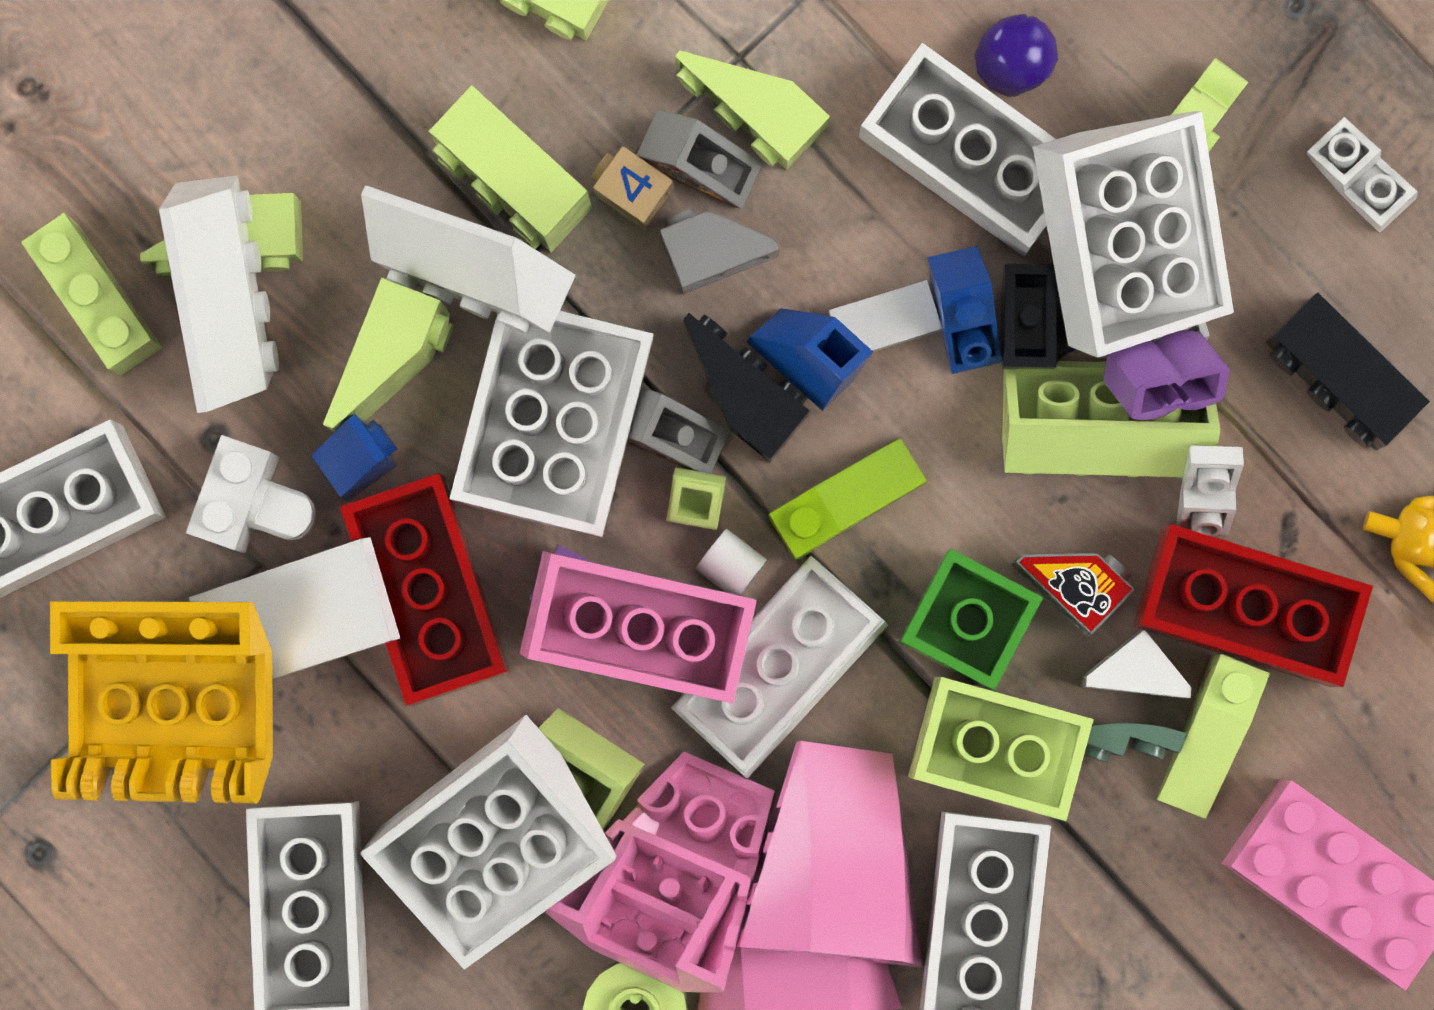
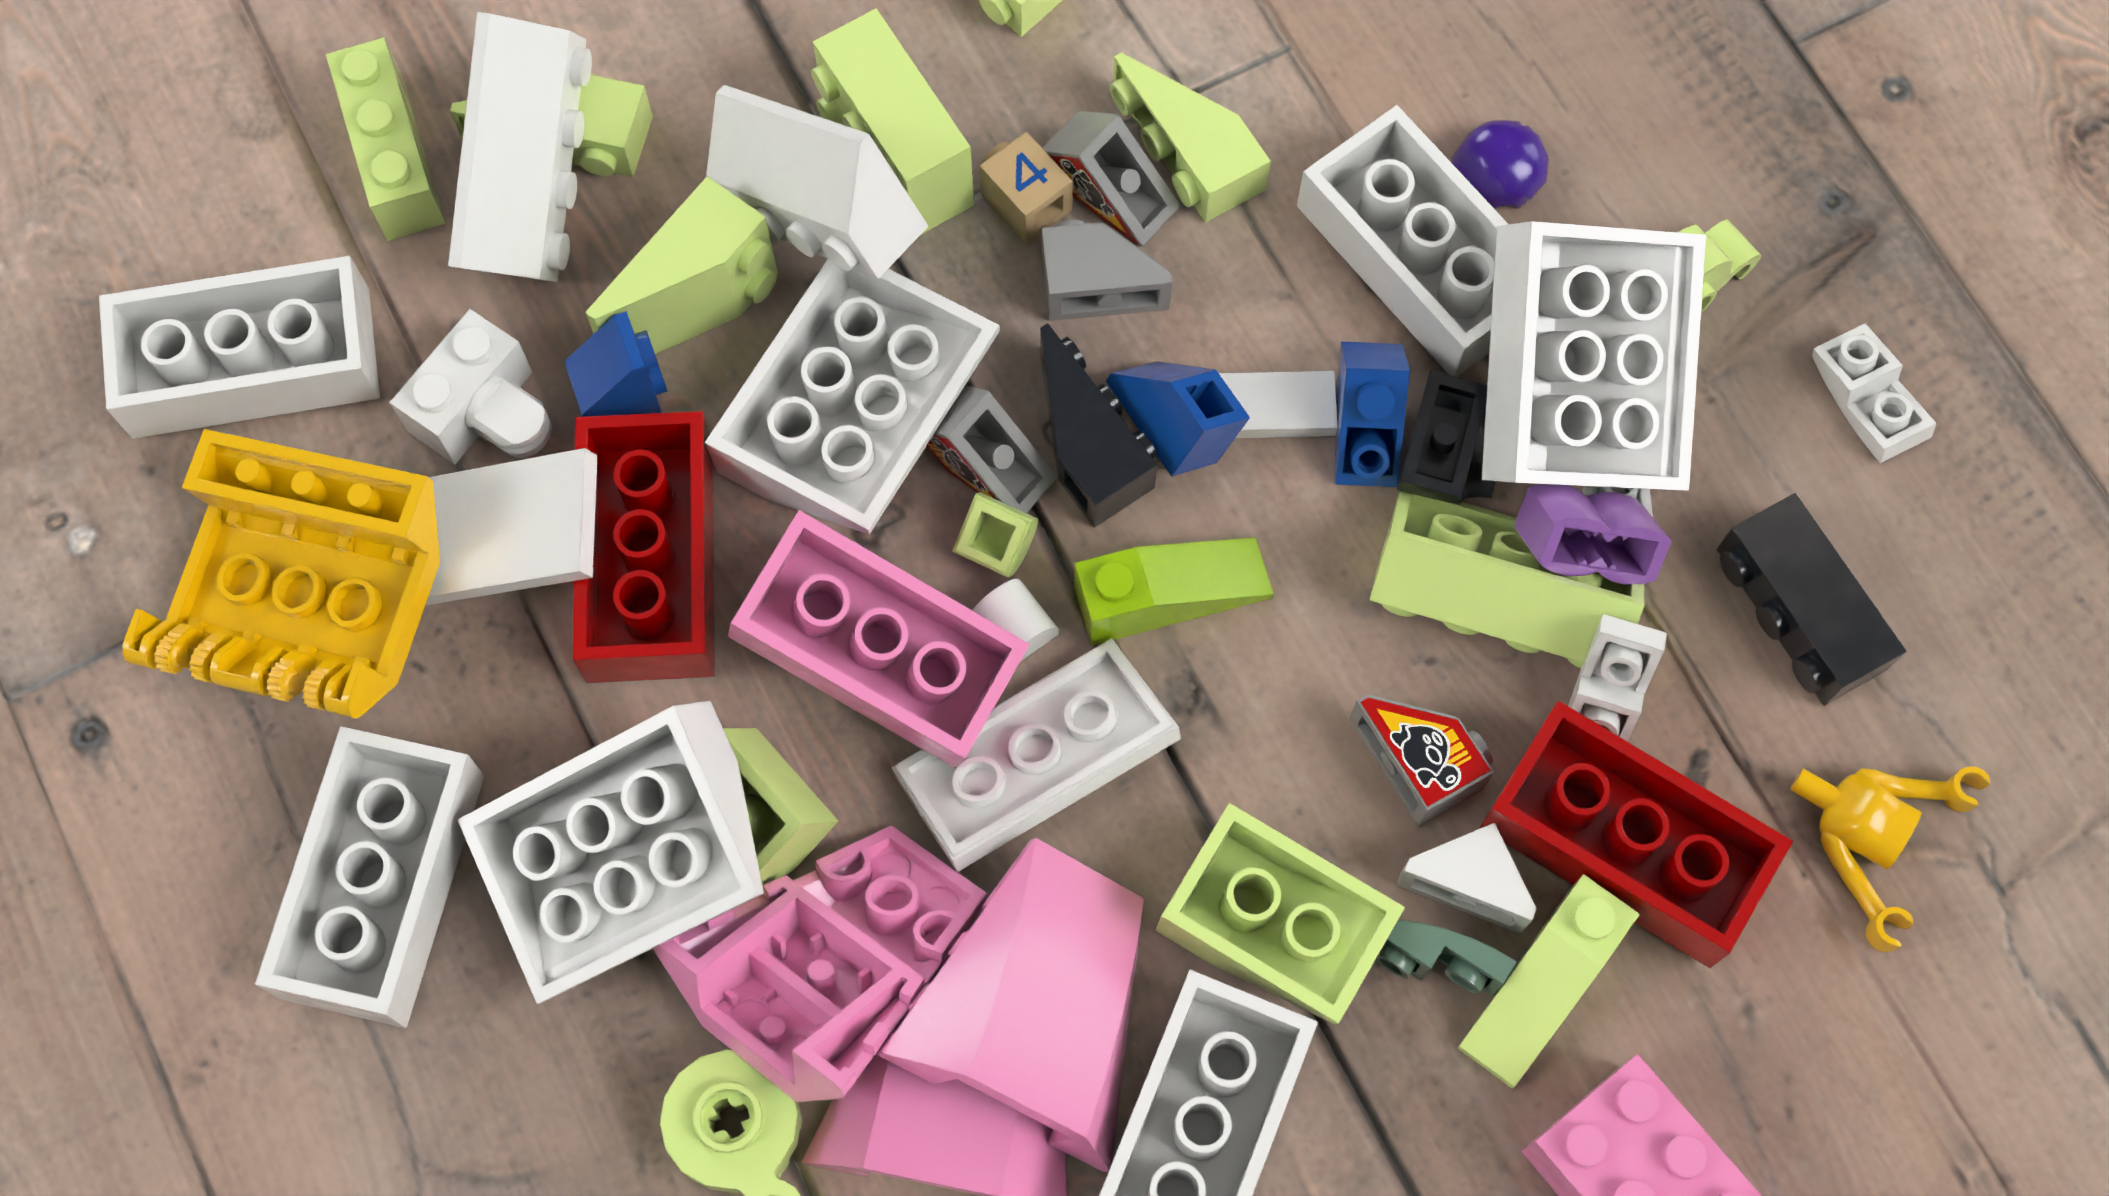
camera: 10 degrees right, 15 degrees down
(970, 620) = (1282, 752): bright green brick -> none

